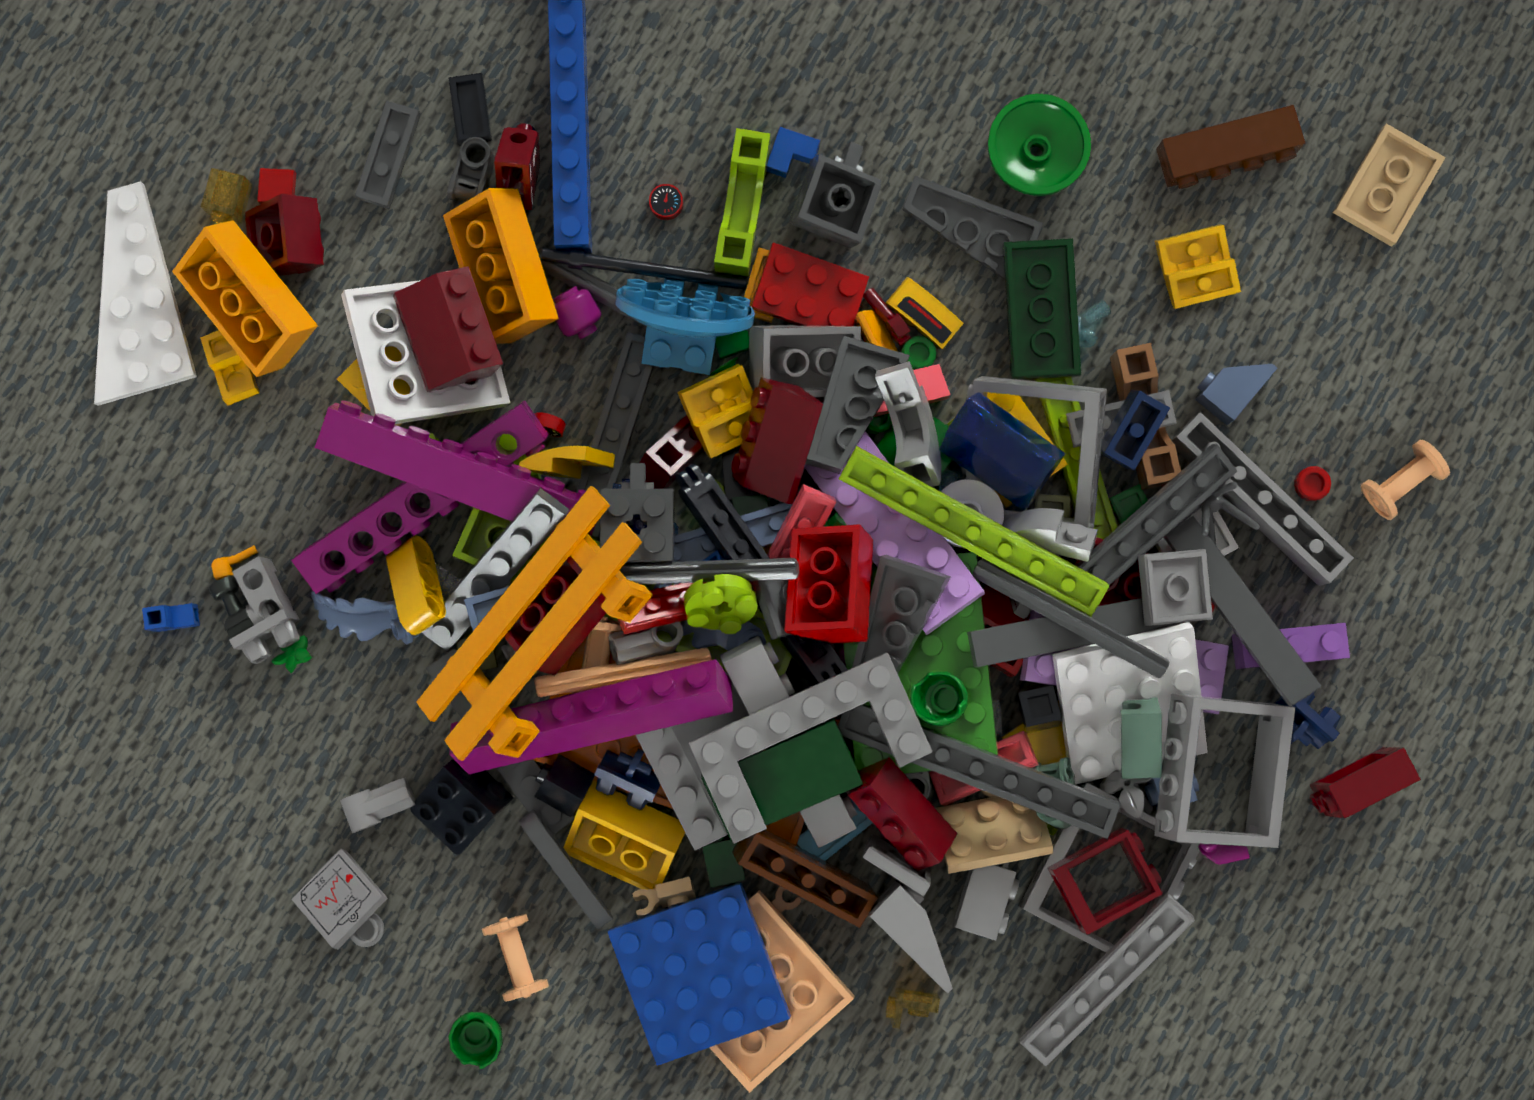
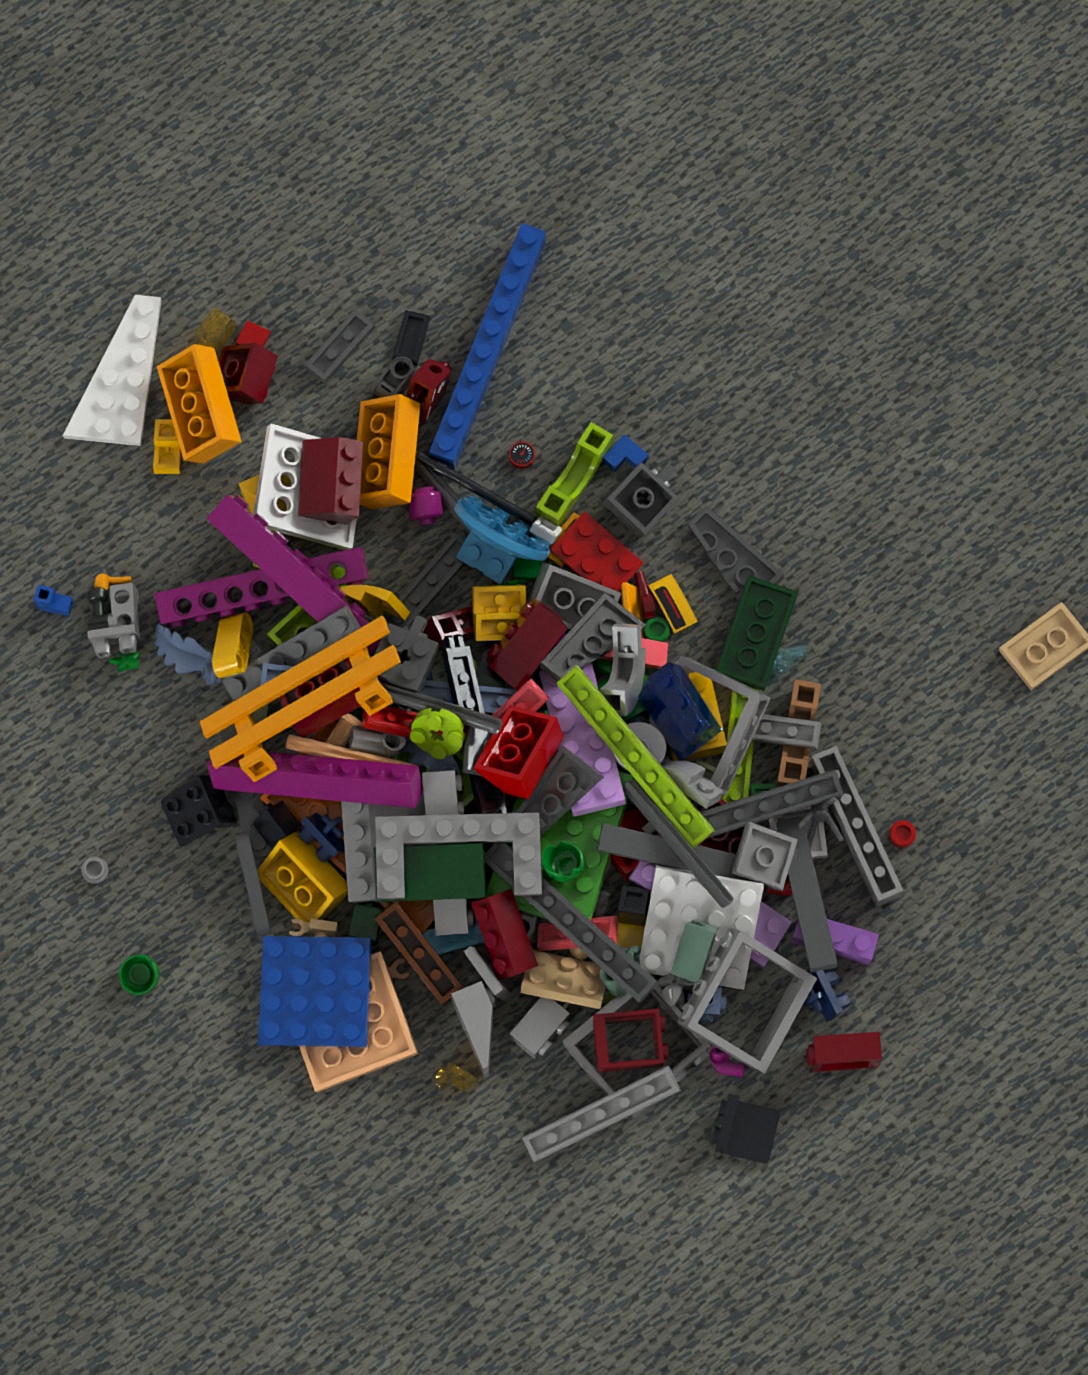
camera: 25 degrees right, 10 degrees down
(339, 899) = (86, 840): light grey tile -> none
(369, 807) = (132, 786): light grey piece -> none
(515, 958) = (191, 928): light nougat hose -> none
(553, 425) = (375, 574): red tile -> none
(736, 284) = (546, 529): none -> white tile
(1042, 123) = (806, 502): green dish -> none
(1133, 429) = (780, 736): dark blue brick -> none
(1197, 266) = (883, 649): yellow slope -> none
(1231, 146) = (941, 574): reddish brown brick -> none
(1232, 389) = (871, 743): sand blue slope -> none
(1280, 922) = (745, 1130): none -> black bracket
(1427, 463) = (949, 860): light nougat hose -> none

